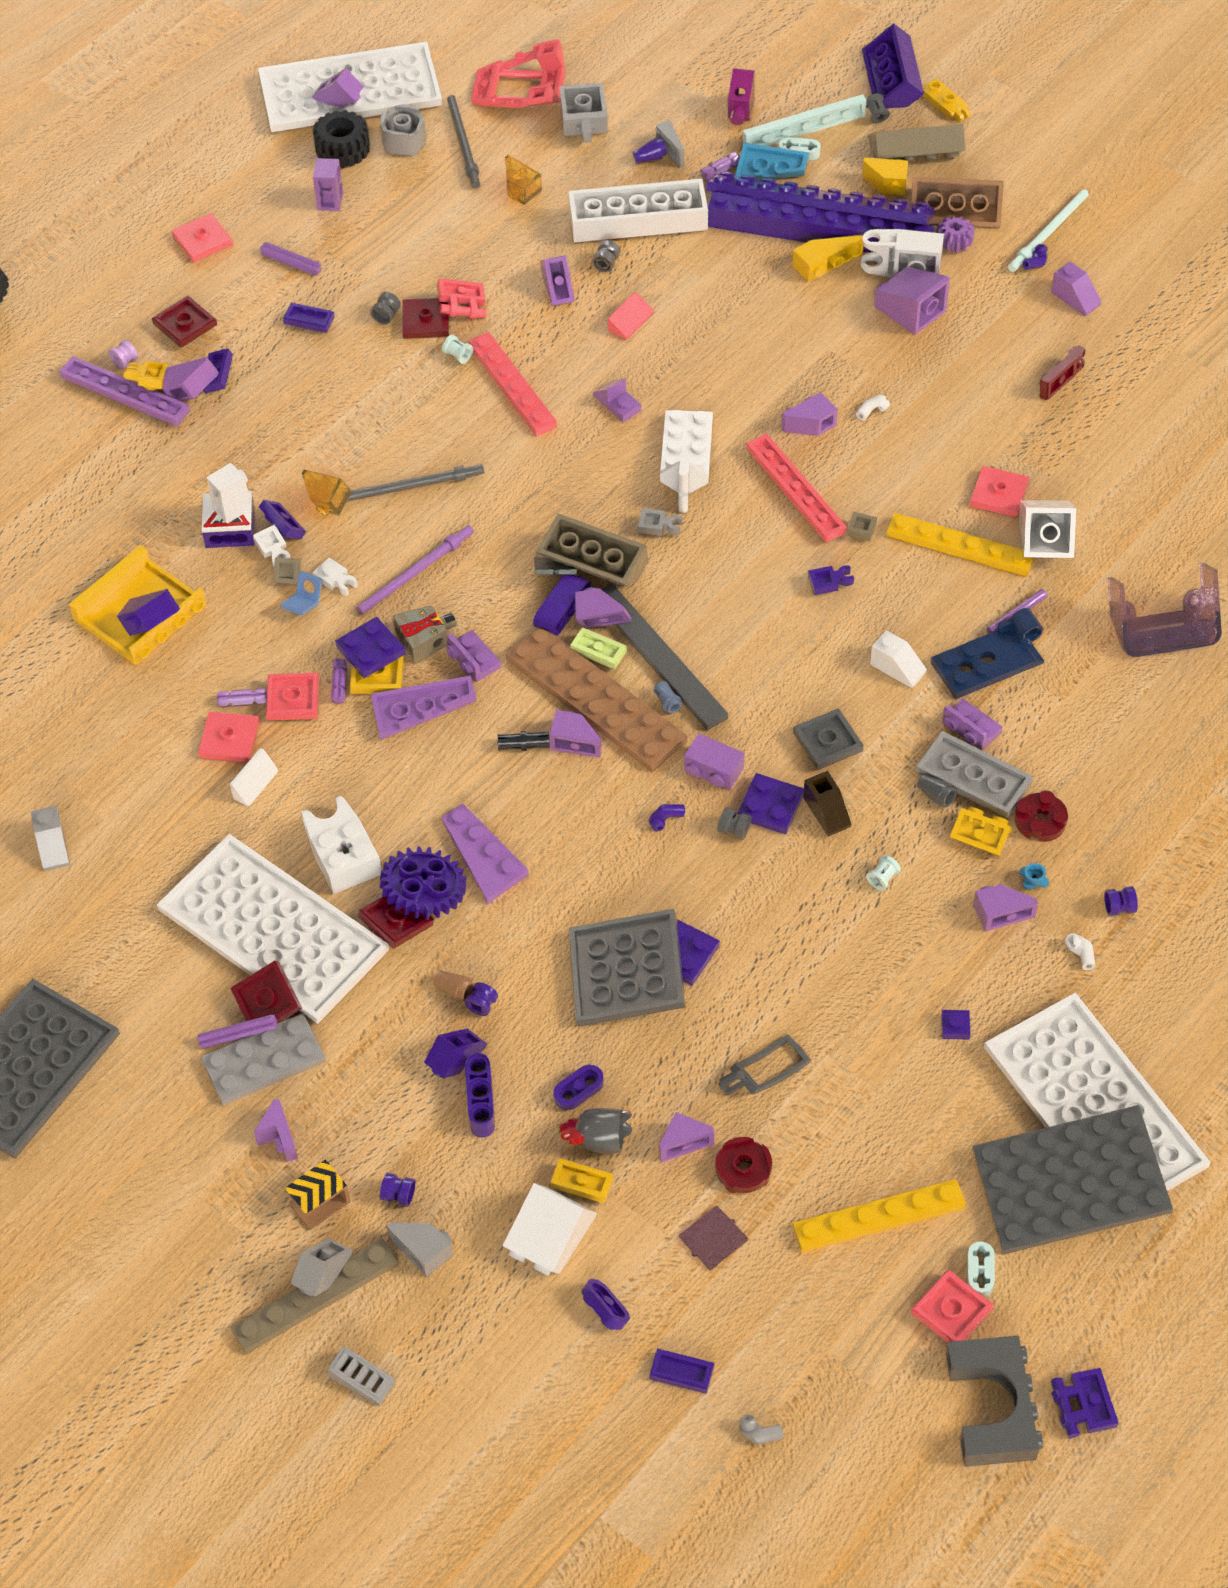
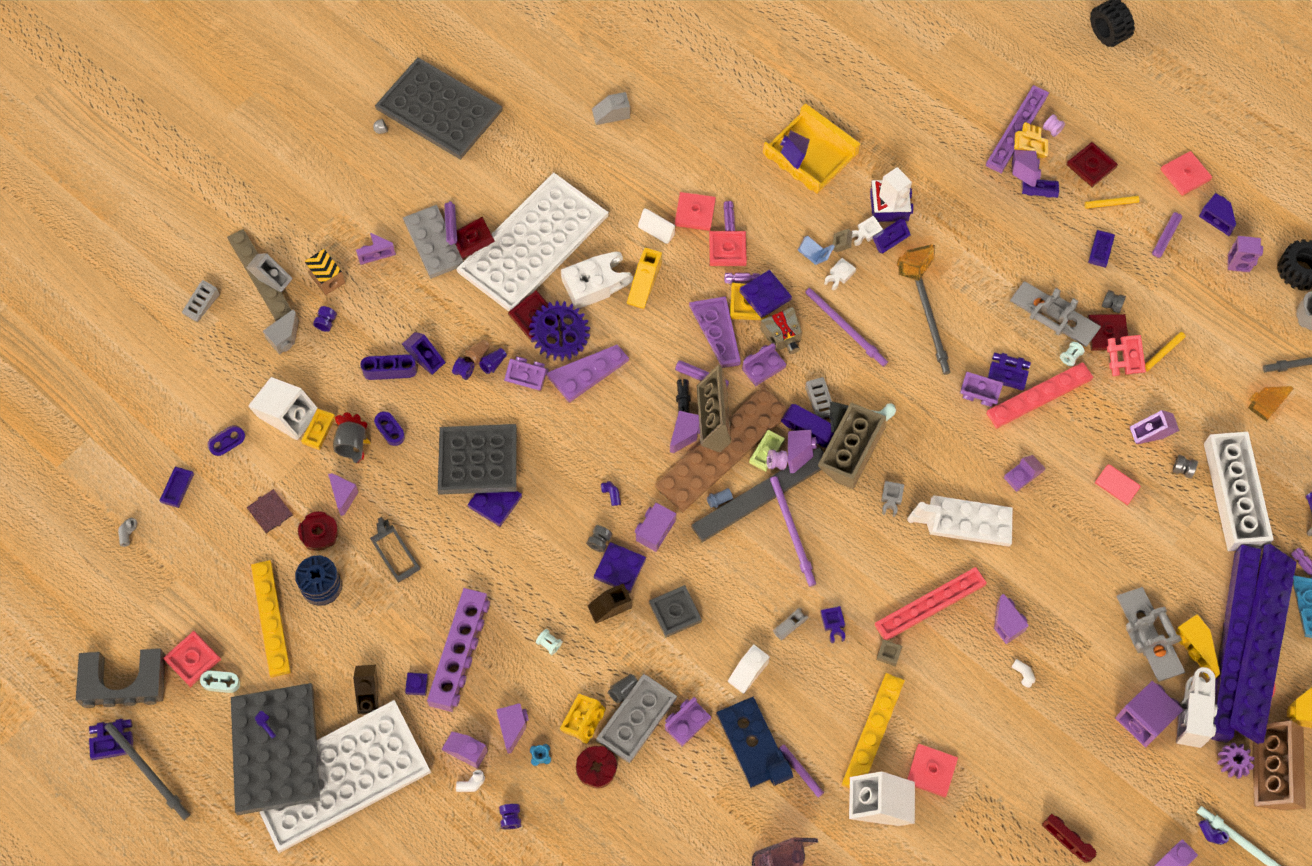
camera: 90 degrees right, 10 degrees up
(51, 1146) = (380, 127): none -> light grey hinge
(239, 307) = (1111, 202): none -> yellow bar
(266, 207) = (1219, 214): none -> dark purple slope
(329, 780) = (645, 277): none -> yellow slope
(391, 364) = (1058, 309): none -> light grey piece
(448, 267) = (1165, 350): none -> yellow bar
(468, 964) = (491, 361): none -> dark purple cone
(487, 409) = (1009, 376): none -> dark purple plate
(488, 721) = (693, 371): none -> medium lavender axle
(488, 921) = (526, 374): none -> medium lavender bracket
(507, 434) = (981, 388): none -> medium lavender bracket
(516, 603) = (816, 387): none -> light grey slope
(538, 525) = (888, 411): none -> light aqua arm
(552, 686) = (713, 411): none -> dark tan slope
(619, 623) = (777, 459): none -> lavender wheel
(754, 608) = (805, 565): none -> medium lavender bar
(817, 301) = (1145, 637): none -> light grey piece
(823, 1160) = (319, 590): none -> dark blue wheel
(834, 624) = (789, 625): none -> light grey bar
(893, 981) = (468, 601): none -> medium lavender brick
(970, 1078) = (366, 688): none -> dark brown slope
(1039, 956) = (465, 749): none -> medium lavender slope
(1039, 1192) = (261, 719): none -> dark purple hand
(1159, 1308) = (172, 800): none -> dark grey bar

